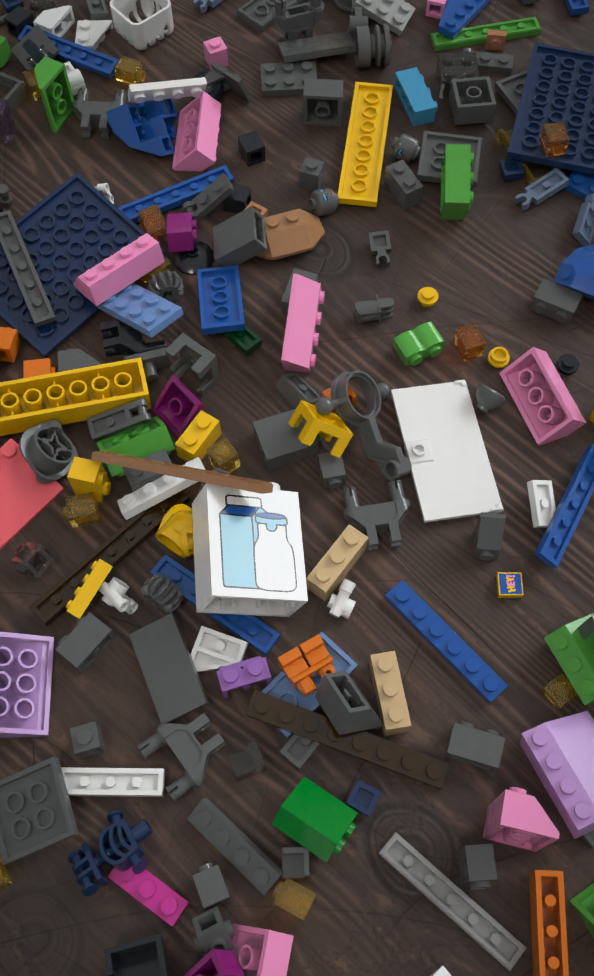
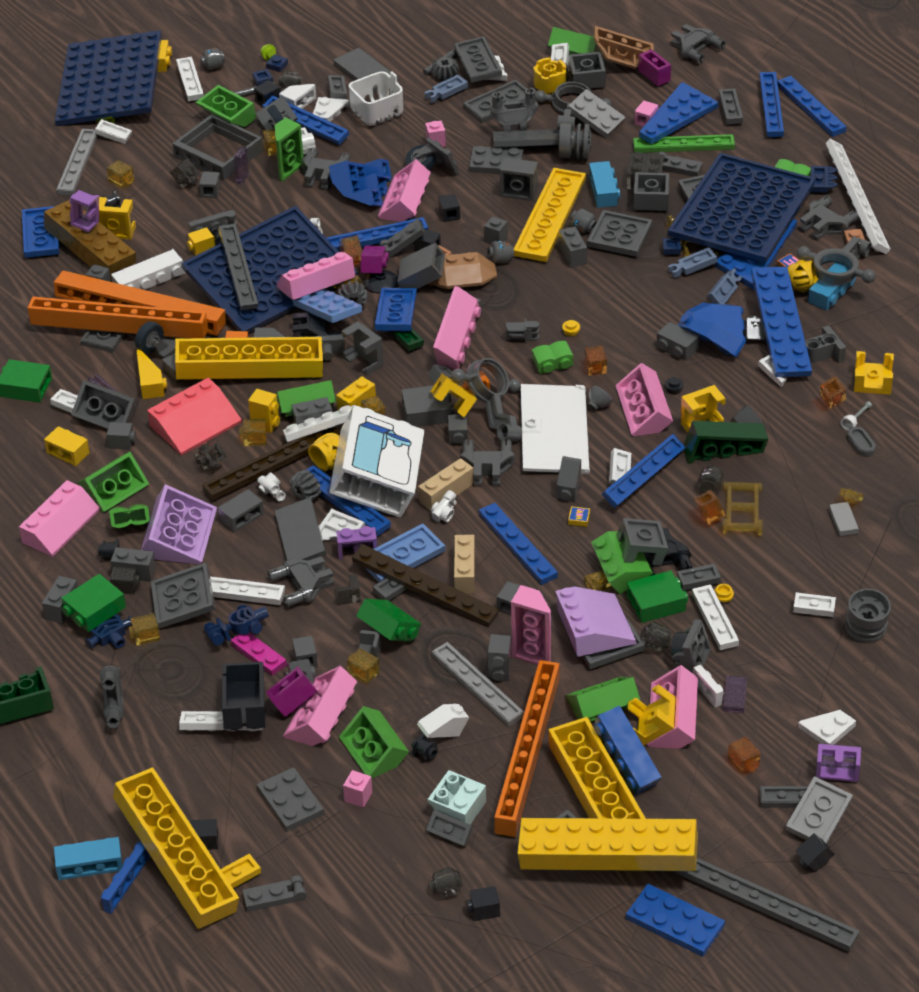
camera: 10 degrees right, 20 degrees down
(47, 451) = (234, 389): dark grey piece -> none
(87, 740) = (231, 563): dark grey brick -> none
(88, 590) = (251, 476): yellow piece -> none
(118, 419) = (295, 377): dark grey plate -> none
(129, 71) = (356, 141): clear yellow brick -> none
(166, 89) = (384, 154): white plate -> none
(177, 406) = (343, 372): magenta slope -> none
(183, 472) = (336, 400): medium nougat tile -> none
(235, 846) = (326, 633): dark grey plate -> none
(301, 674) = (405, 535): orange hips -> none
(346, 704) = (429, 558): dark grey slope -> none
(363, 798) = (429, 620): dark blue plate -> none
(380, 245) = (540, 288): dark grey plate -> none
(456, 182) = (615, 246): bright green piece -> none
(495, 40) = (689, 148): nougat plate -> none
(498, 357) = (617, 373): yellow plate -> none
(554, 139) = (708, 223): clear orange brick -> none

